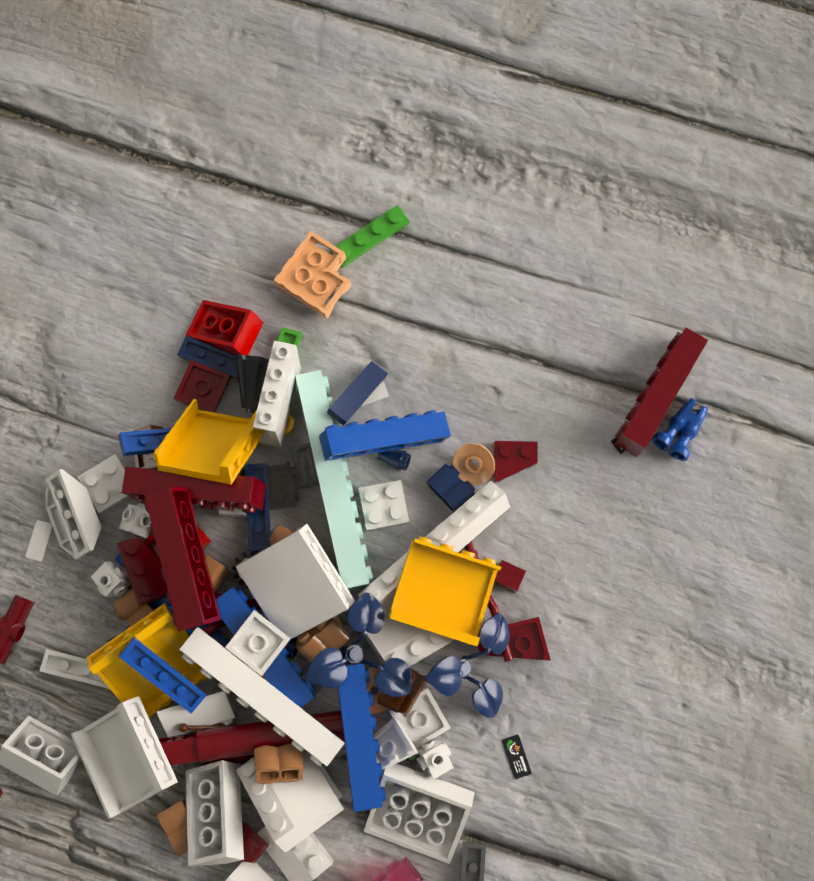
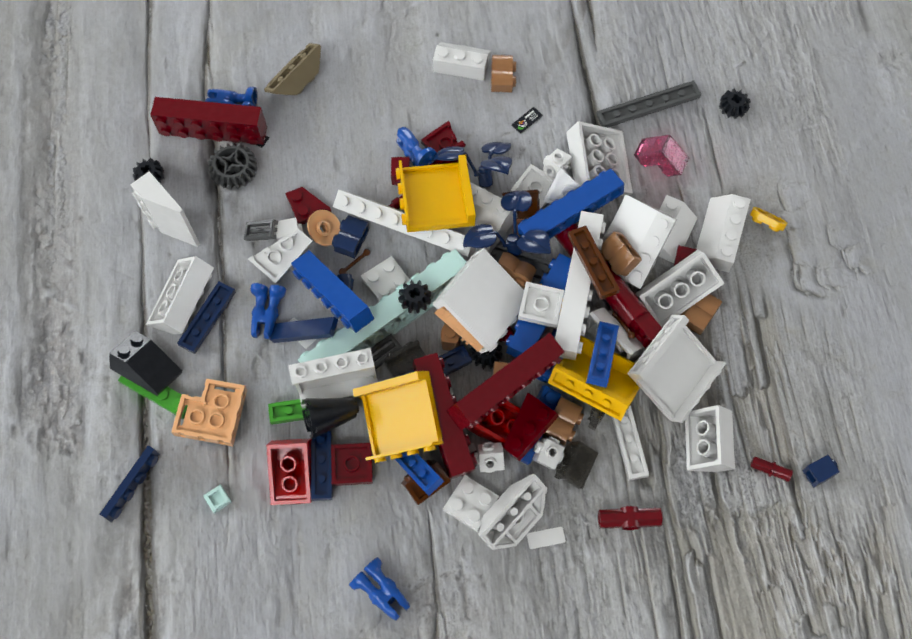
camera: 110 degrees left, 10 degrees down
(64, 368) = (385, 595): none -> blue piece
(89, 604) = (576, 464): none -> clear smoke bracket
(233, 254) = (217, 499): none -> light aqua tile
(269, 719) = (593, 262): none -> reddish brown plate
(288, 188) = (126, 489): none -> dark blue plate
(319, 512) = (408, 293): none -> black gear
(398, 232) = (143, 363): none -> black slope
(400, 363) = (267, 316): none -> blue piece
(417, 465) = (366, 252): none -> reddish brown hinge
(426, 309) = (206, 317): none -> dark blue plate
(459, 405) = (277, 258): none -> white wing
(461, 292) = (180, 295): none -> white slope
(487, 426) = (286, 227): none -> white brick
(493, 406) = (272, 222): none -> dark grey tile
(533, 600) = (411, 148): none -> blue piece
(556, 302) = (162, 209): none -> white slope
(589, 755) = (502, 73): none -> medium nougat brick
(601, 404) = (230, 160): none -> dark grey gear
(632, 306) = (146, 166): none -> black gear
(632, 716) = (461, 61): none -> white slope
(689, 510) = (296, 72): none -> dark tan wedge

